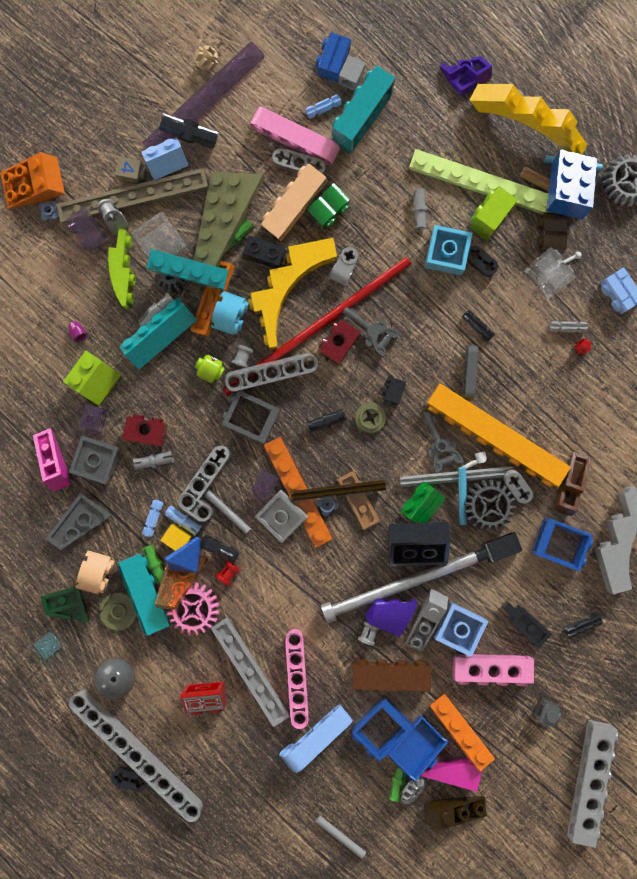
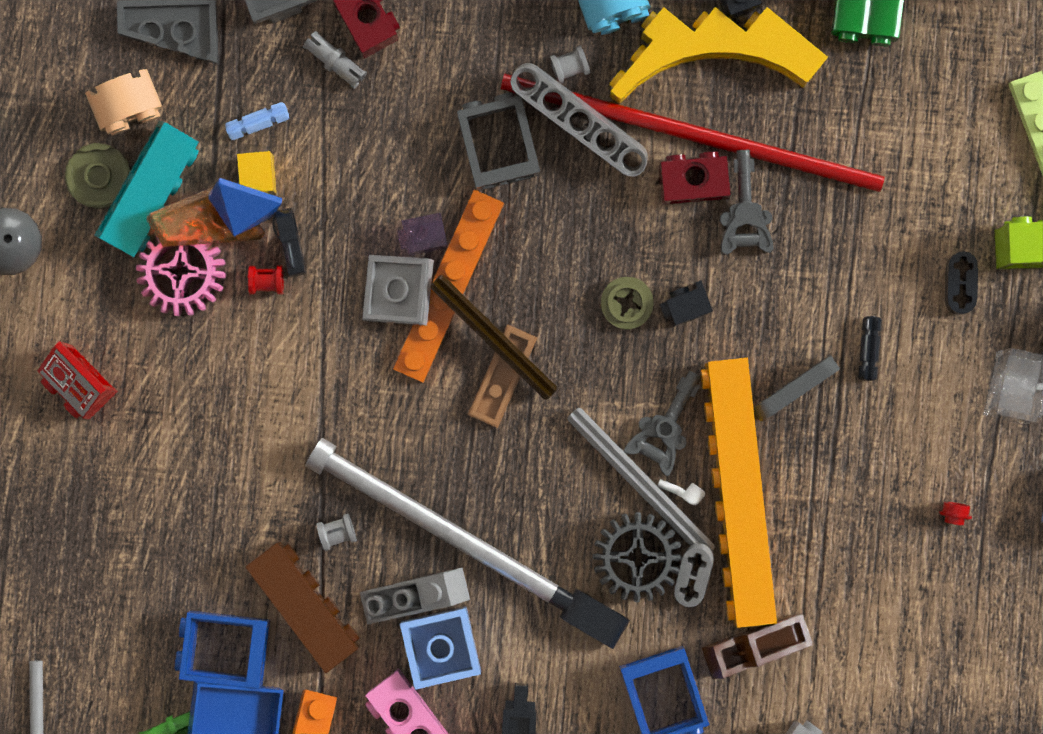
camera: 45 degrees right, 0 degrees up
(66, 604) = (51, 99): dark green wing -> none
(154, 563) = (199, 171): bright green pin -> none
(183, 520) = (287, 163): light blue axle -> none
(208, 480) = (366, 154): light grey beam -> none
(209, 368) = (517, 34): lime head -> none
(226, 511) = (345, 213): light grey bar -> none
(250, 671) = (158, 415): light grey plate -> none
(297, 687) = (184, 489): bright pink beam -> none
(316, 739) = (140, 572): light blue beam -> none
(326, 420) = (574, 247): black pin -> none
(327, 509) = (454, 342): sand blue plate -> none
(343, 269) = (796, 104): light grey piece -> none
(391, 615) = (384, 542): dark purple slope -> none
(418, 544) = (508, 500): black brick -> none
(419, 209) = (963, 142): light grey pin -> none
(422, 504) = (566, 465): green brick -> none
(448, 250) = (937, 224): medium azure brick -> none
(462, 496) = (621, 509): medium azure bar -> none
(568, 327) = (966, 472): light grey axle -> none

